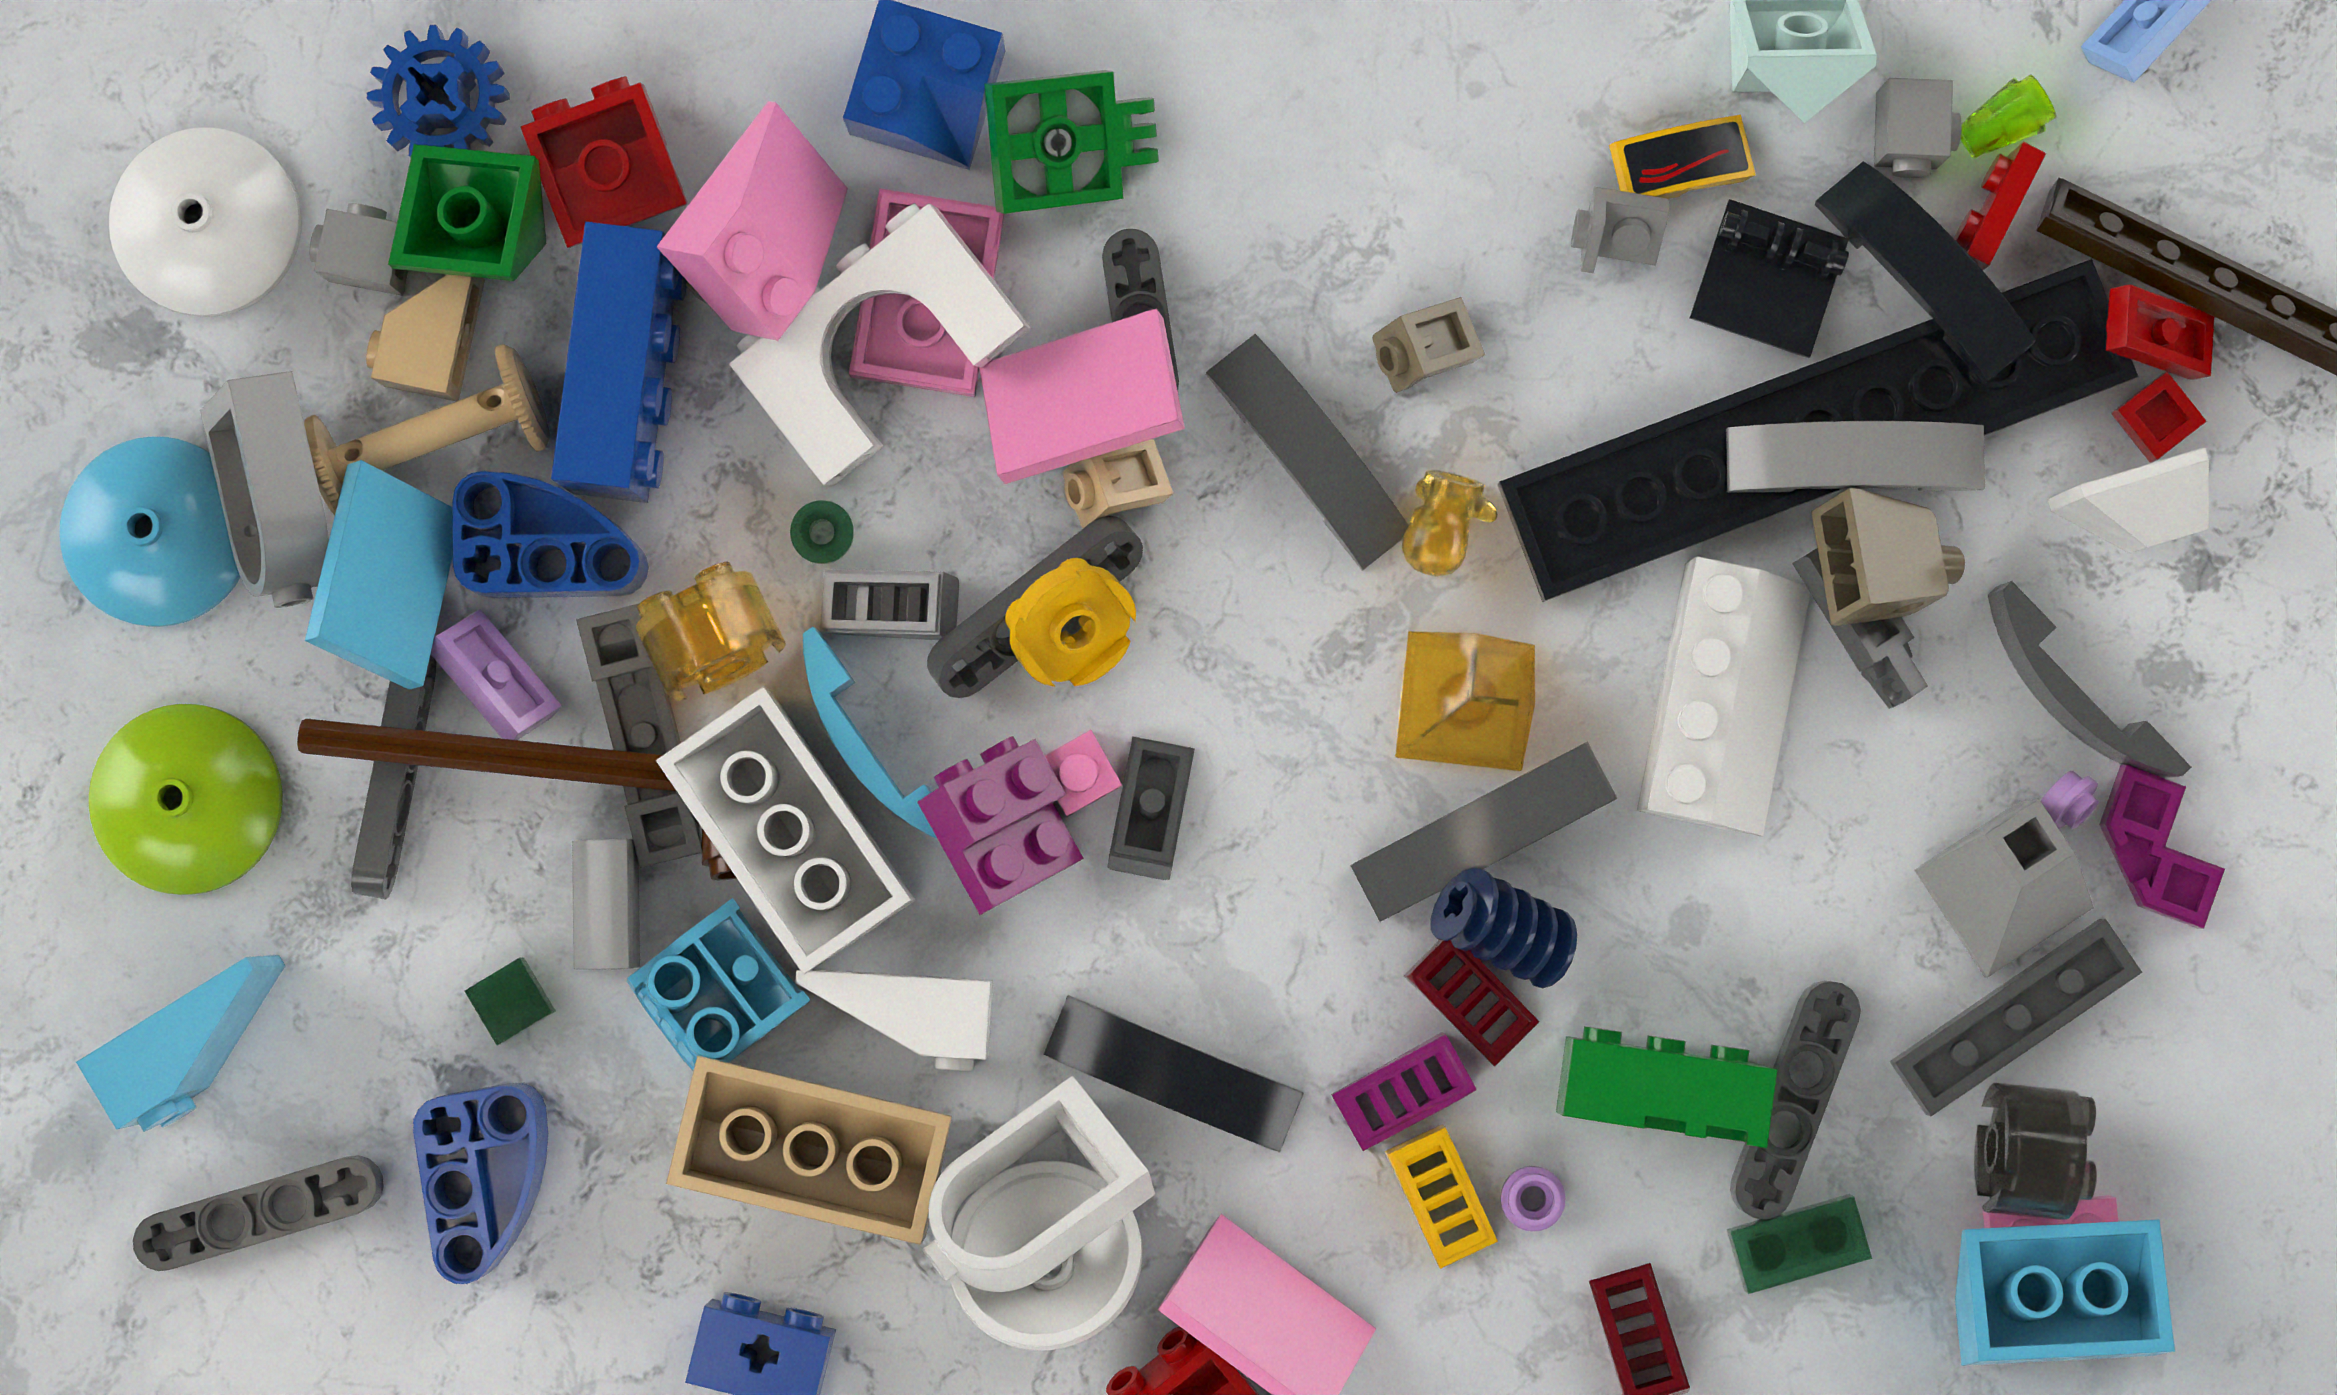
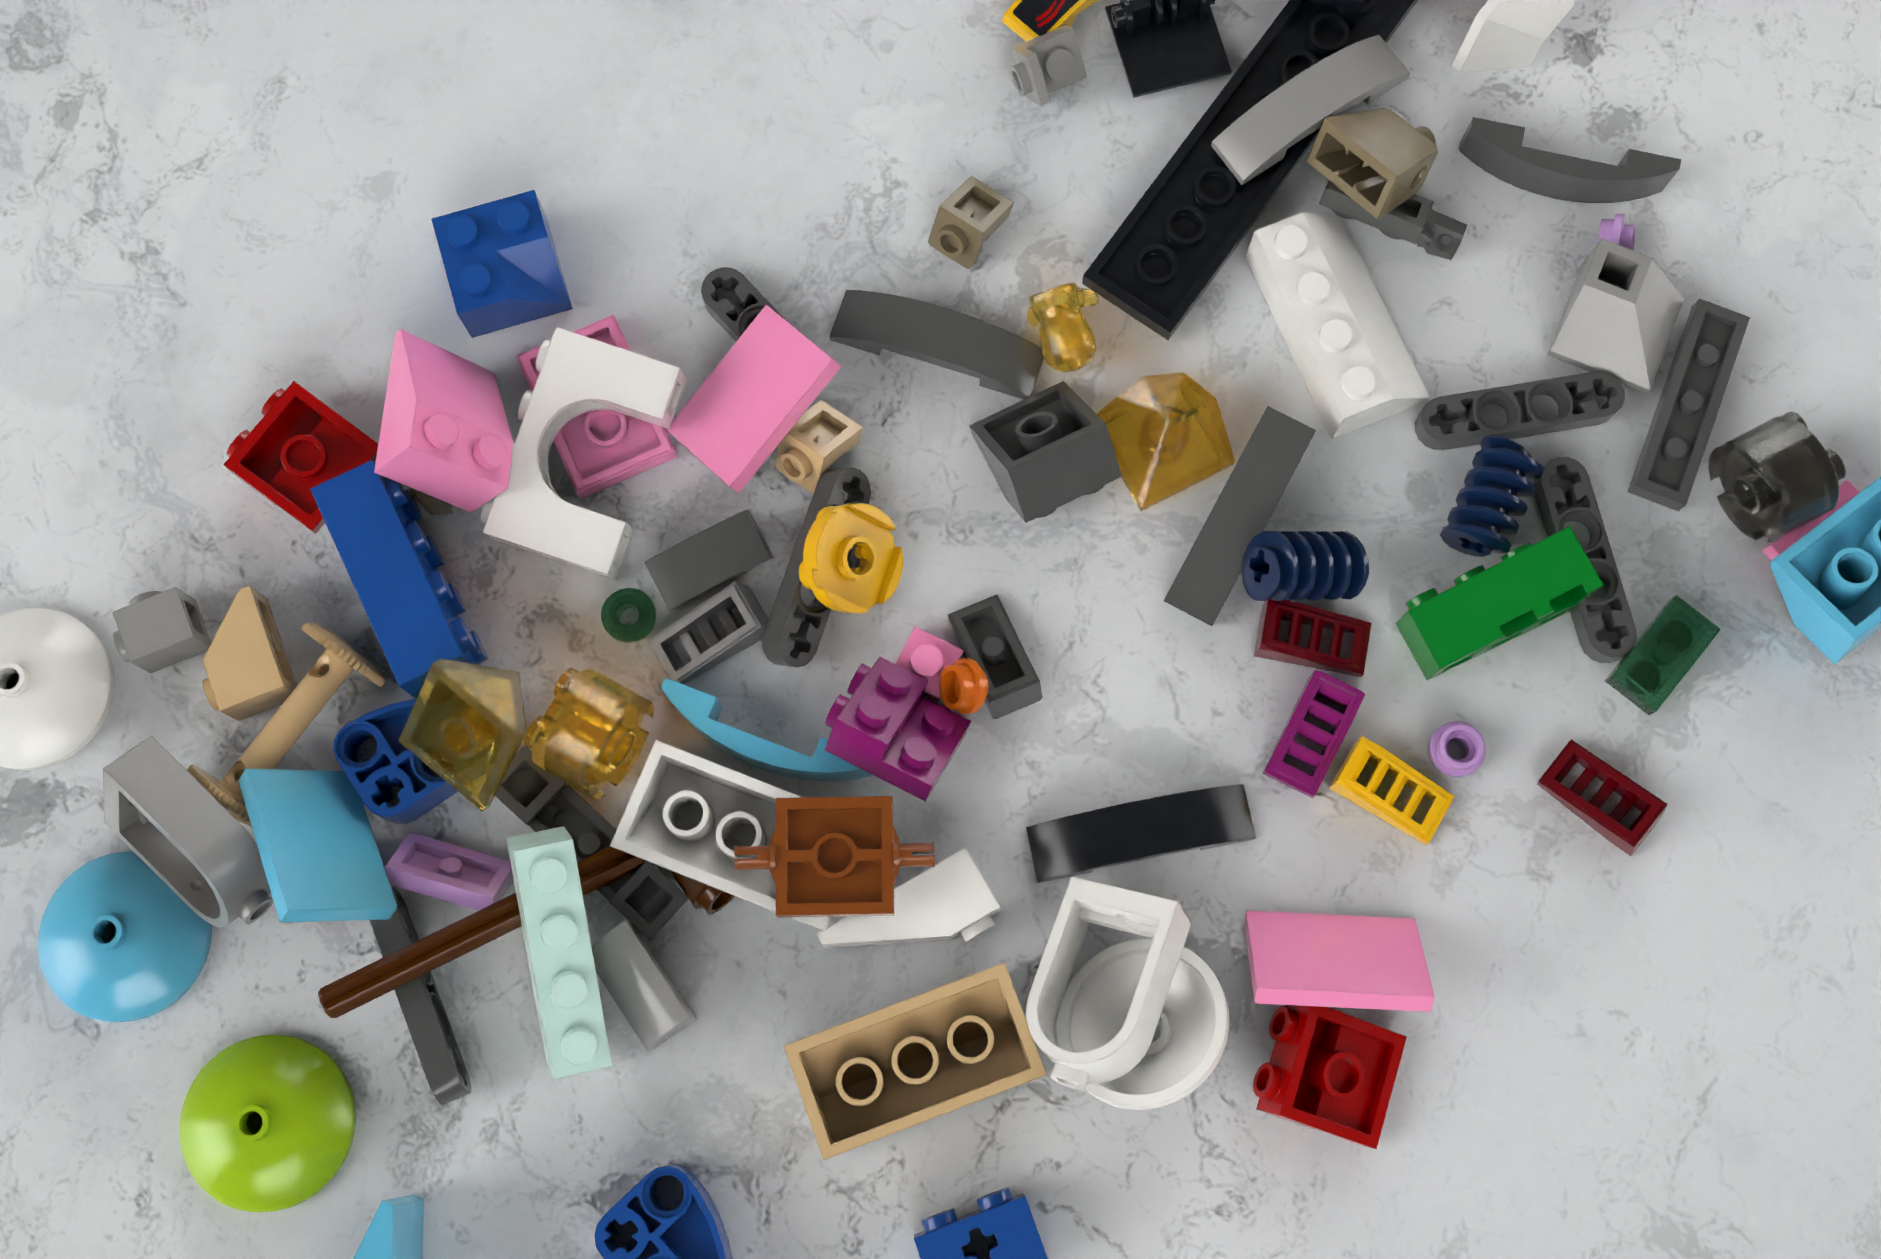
camera: 30 degrees left, 10 degrees down
(454, 76) = (160, 507): blue gear -> none
(469, 213) = (222, 547): green slope -> none
(510, 1001) = (614, 1109): clear green plate -> none
(546, 828) = (559, 951): none -> light aqua brick
(594, 559) = (468, 726): none -> clear yellow slope
(729, 981) = (773, 982): medium azure slope -> none
(855, 915) = (834, 856): none -> dark orange plate
(934, 530) = (708, 559): none -> dark grey slope
(1063, 140) = (624, 239): green piece -> none
(1095, 823) = (963, 686): none -> orange plate
(1338, 638) = (1047, 451): none -> dark grey slope
(1745, 982) = (1490, 497): none -> dark blue piece
(1840, 914) = (1517, 404): none -> dark grey beam
(2137, 831) = (1671, 233): magenta tile -> none

